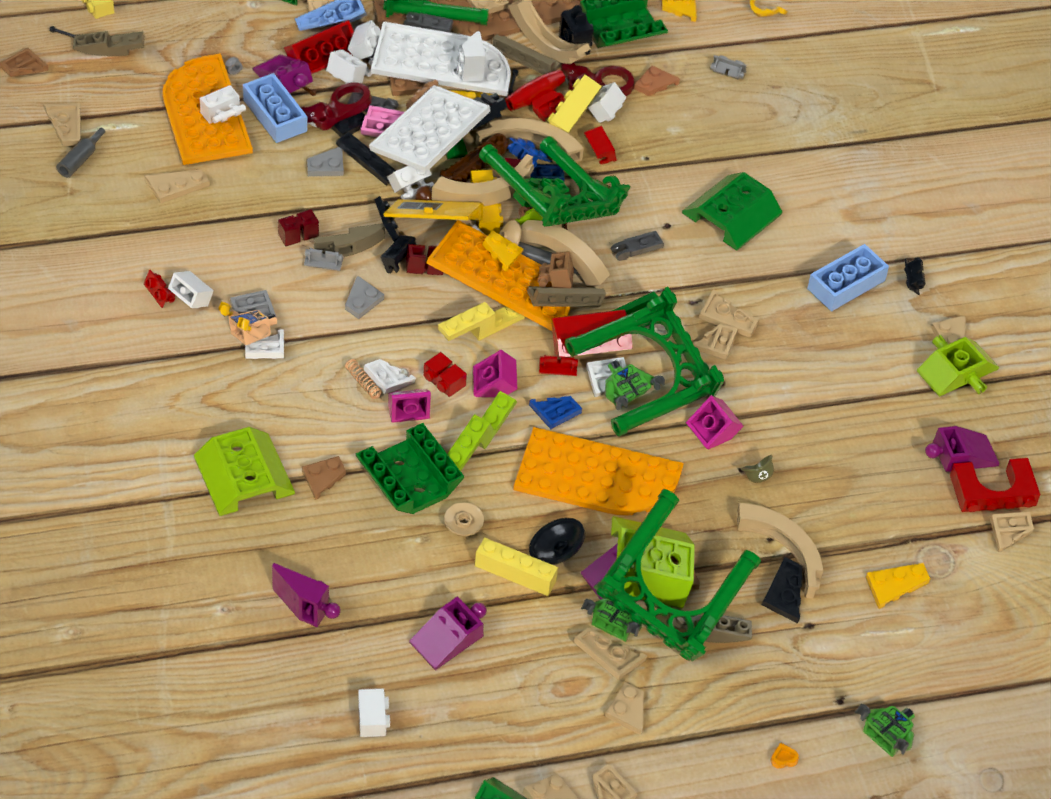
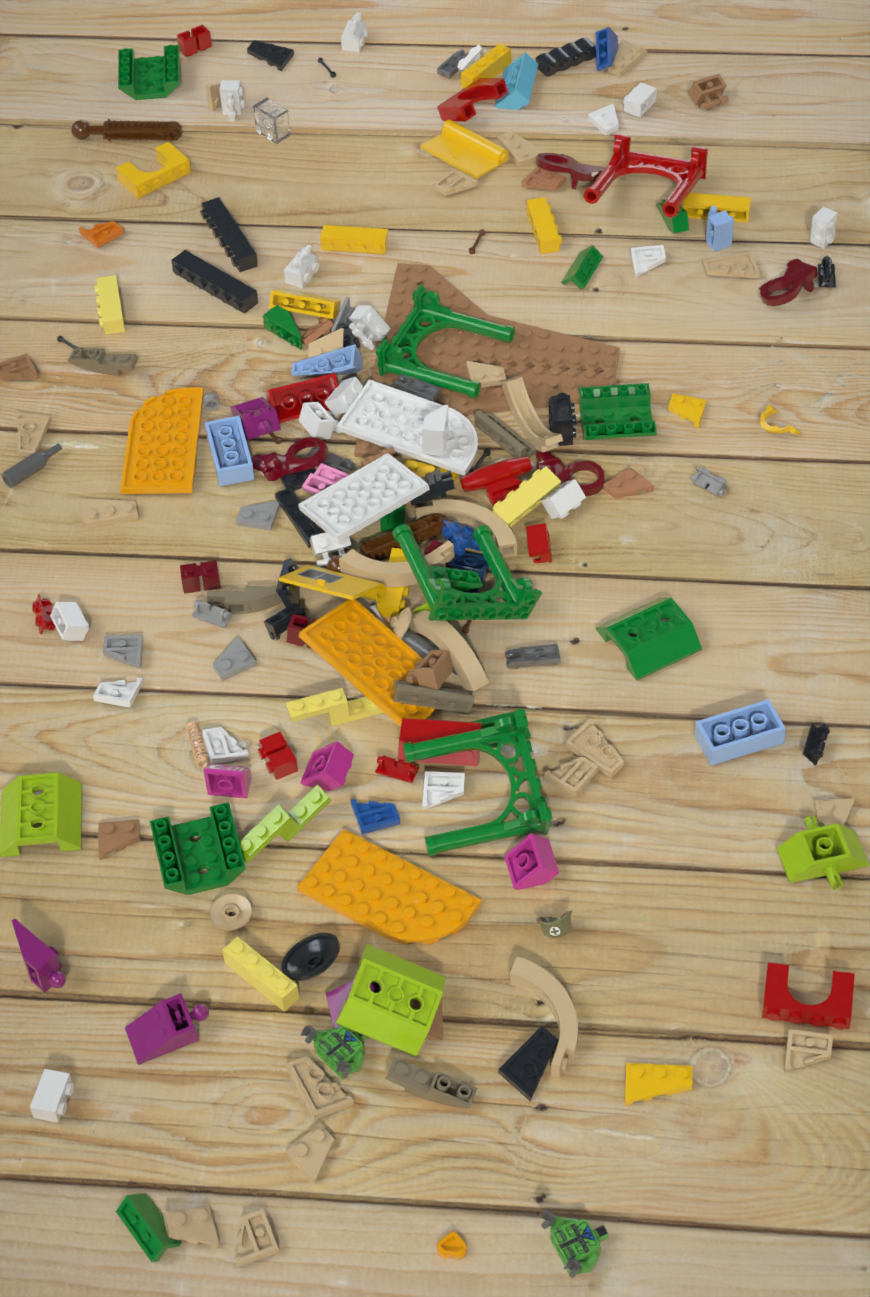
camera: 25 degrees right, 0 degrees up
(221, 105) = (176, 439): white brick -> none
(248, 326) = (107, 668): light nougat torso -> none
(502, 249) = (385, 636): yellow wing -> none
(613, 588) = (431, 1069): green arch -> none
(628, 384) = (455, 803): torso -> none
(961, 446) = (790, 946): magenta slope -> none

